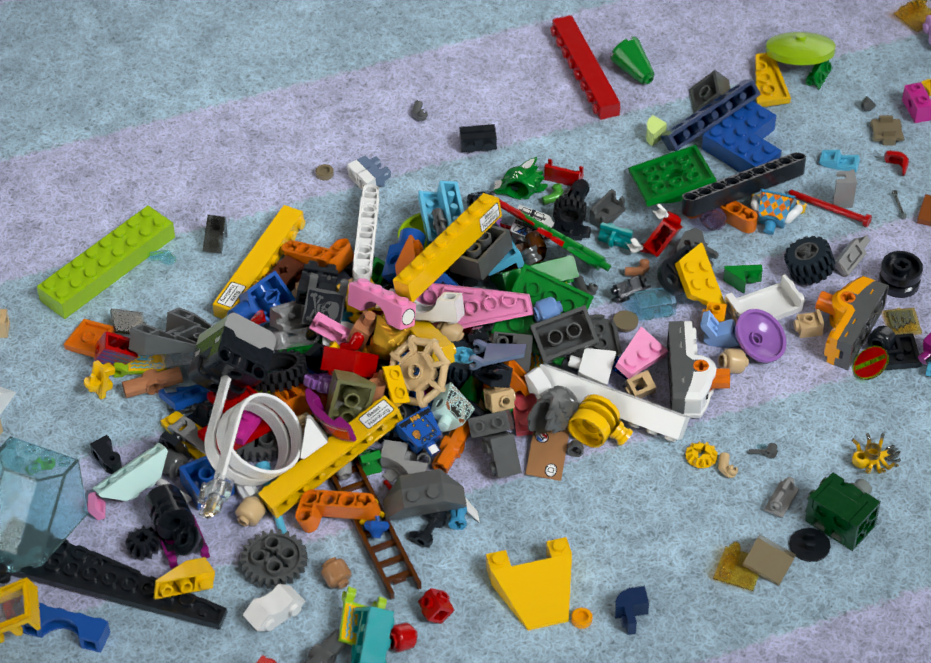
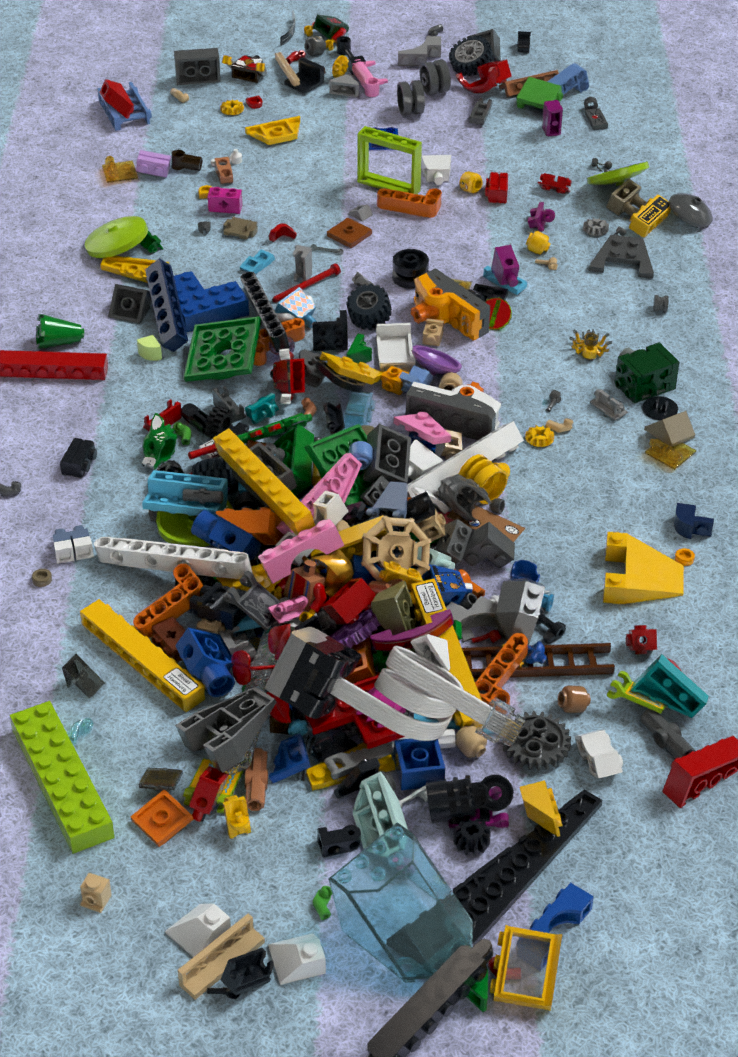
camera: 70 degrees left, 5 degrees down
(482, 492) = (524, 569): none -> blue hair
(751, 250) = (331, 334): none -> black bracket

